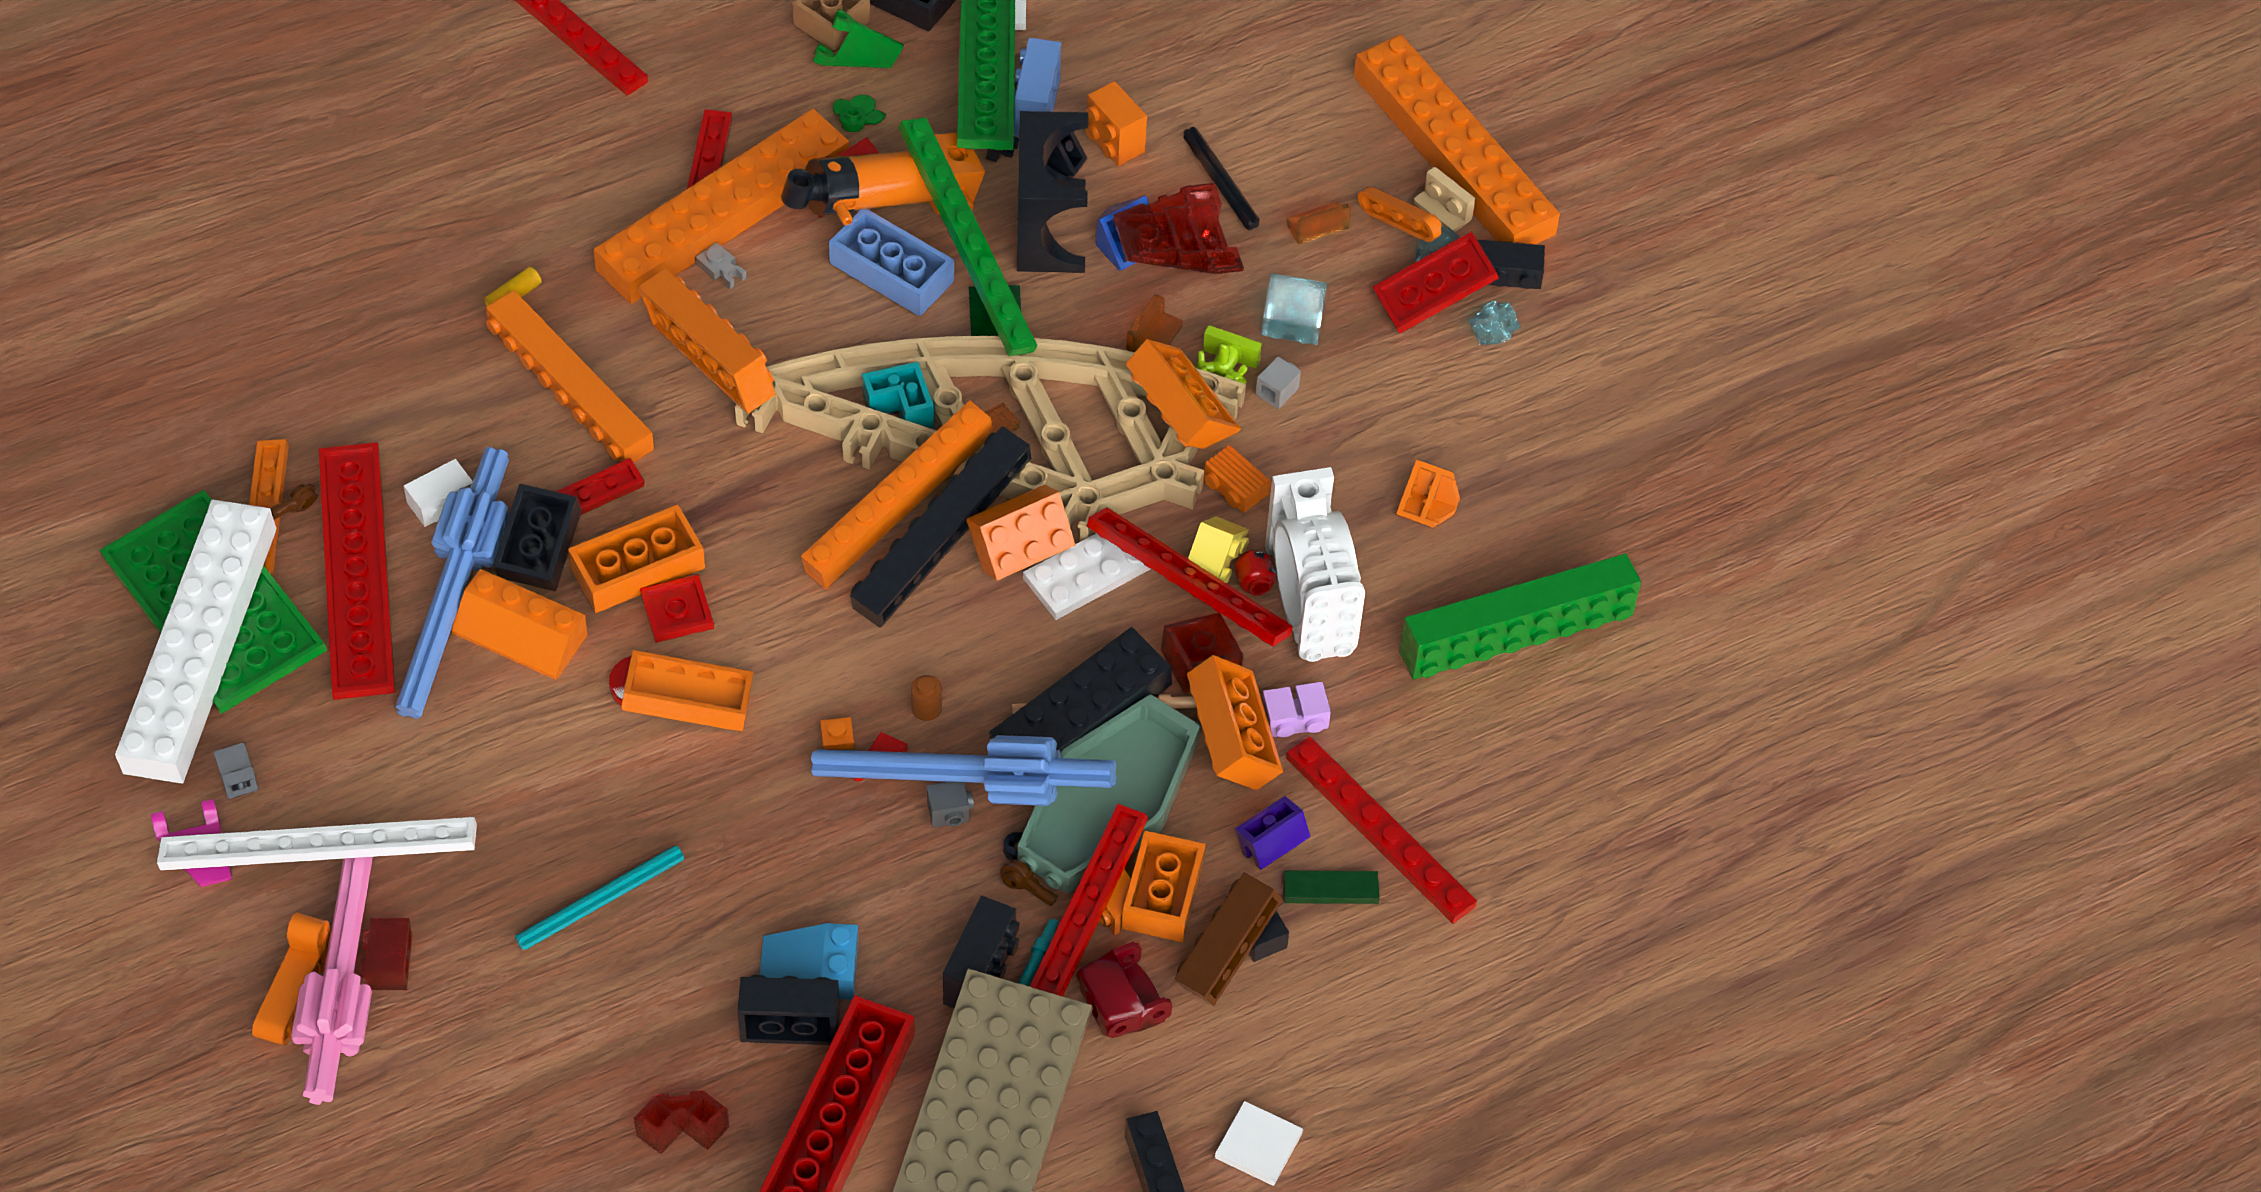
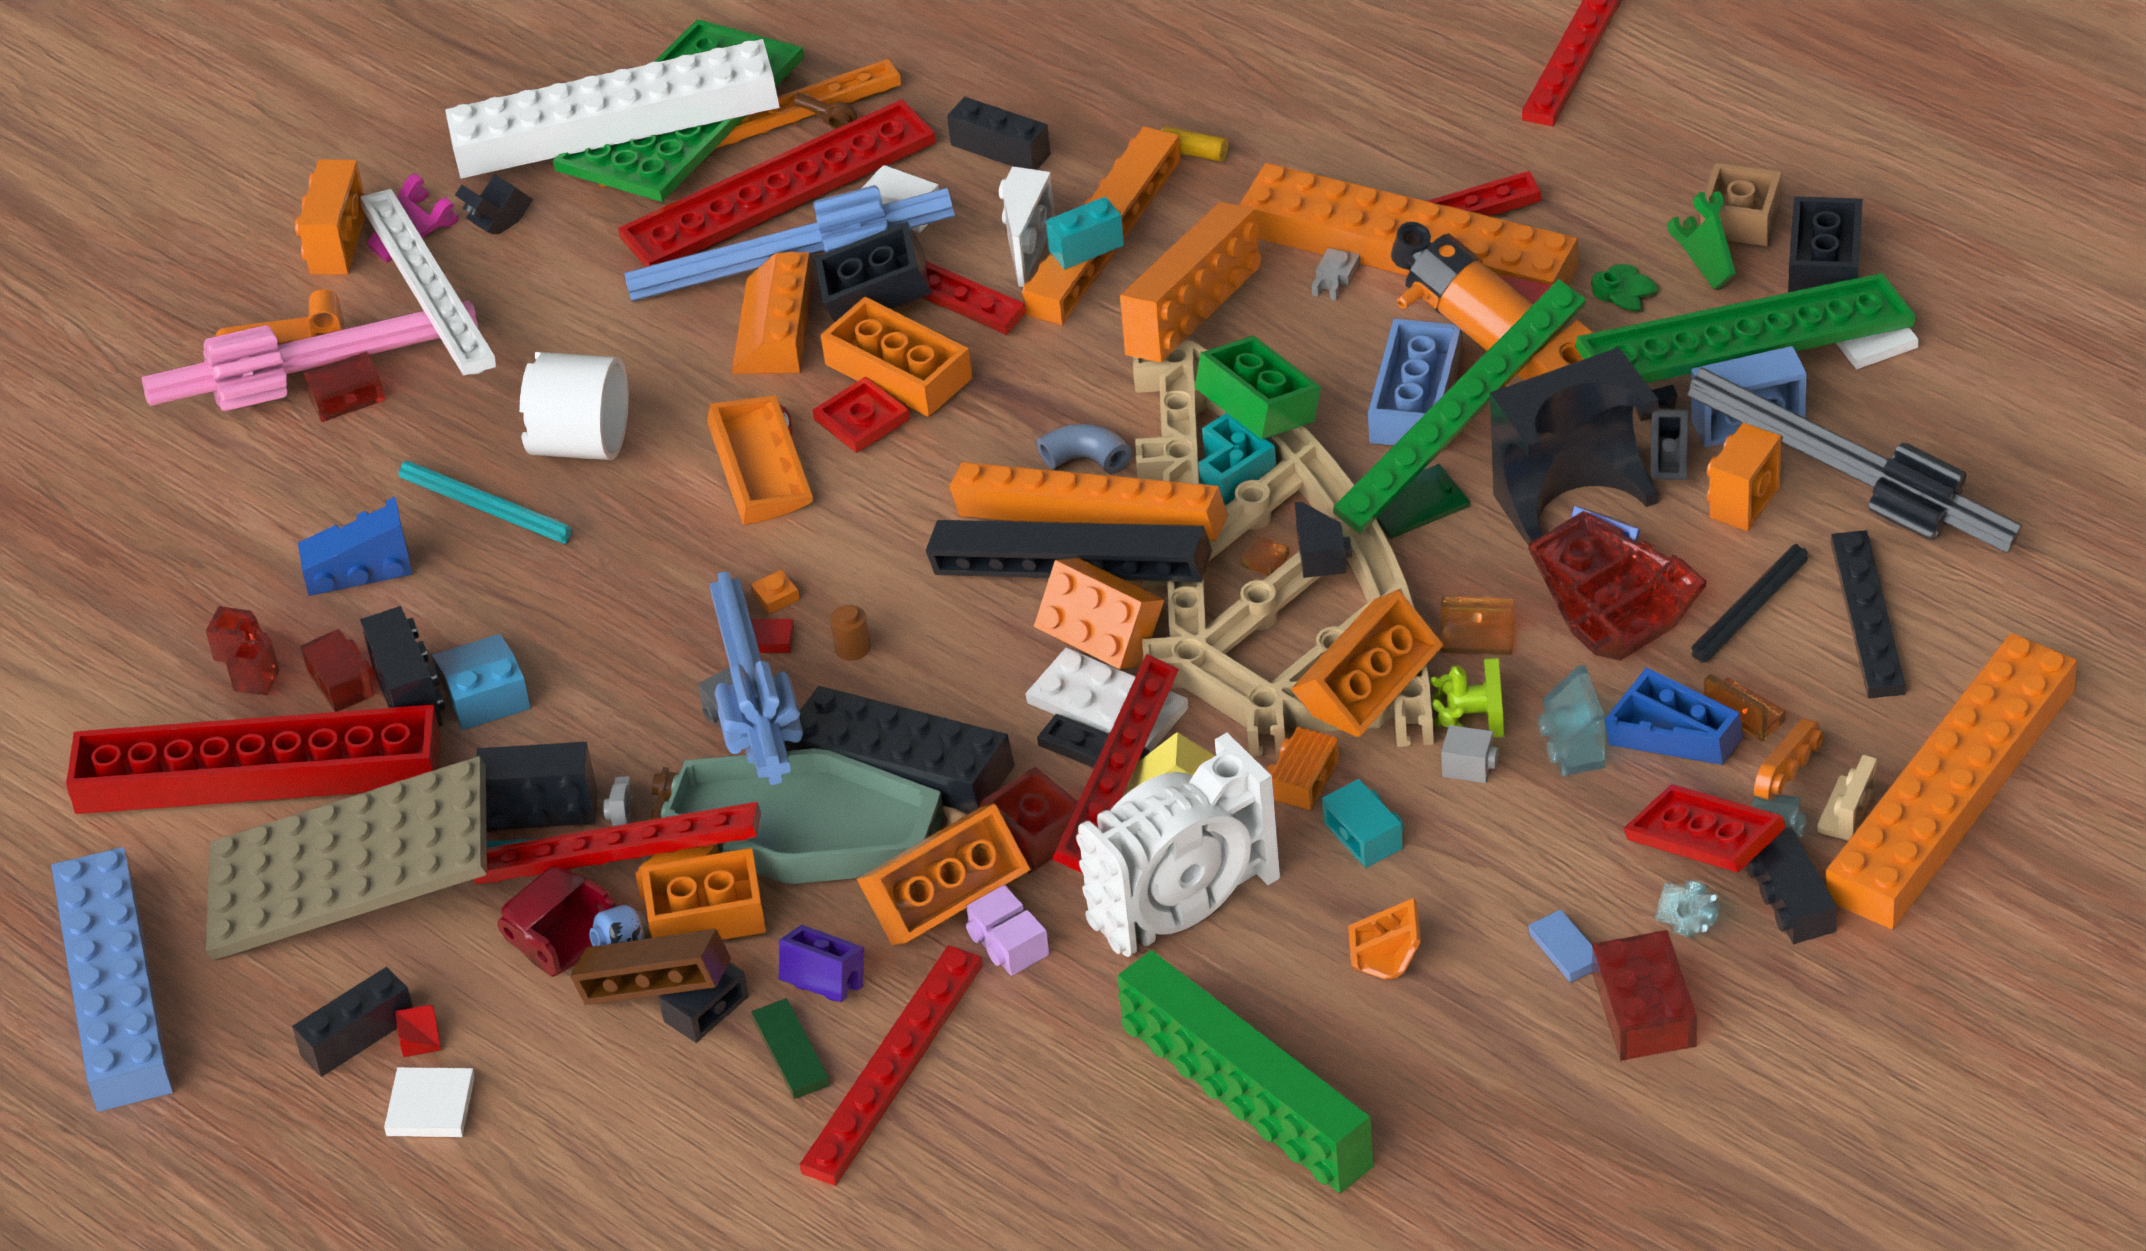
camera: 75 degrees right, 10 degrees down
(169, 891) = (331, 217): none -> orange brick
(413, 402) = (998, 134): none -> black brick
(543, 421) = (1027, 206): none -> white slope
(563, 784) = (574, 406): none -> white brick
(602, 383) = (1084, 232): none -> teal brick
(615, 1003) = (357, 553): none -> blue wedge
(741, 1062) = (338, 670): none -> clear red brick
(811, 477) = (1084, 441): none -> sand blue cylinder
(863, 342) = (1257, 387): none -> green brick
(1030, 909) = (618, 805): none -> light grey plate
(1038, 374) = (1320, 542): none -> black slope
(1129, 597) = (1074, 740): none -> black tile
(1158, 955) = (618, 926): none -> medium blue head
(1183, 1128) = (418, 1030): none -> red slope
(1187, 43) = (1907, 489): none -> axle
(1268, 123) = (1867, 614): none -> black plate
(1310, 457) = (1362, 823): none -> teal brick
(1323, 253) = (1673, 721): none -> blue wedge
(1481, 404) = (1563, 944): none -> medium blue tile
(1558, 378) = (1644, 995): none -> clear red brick

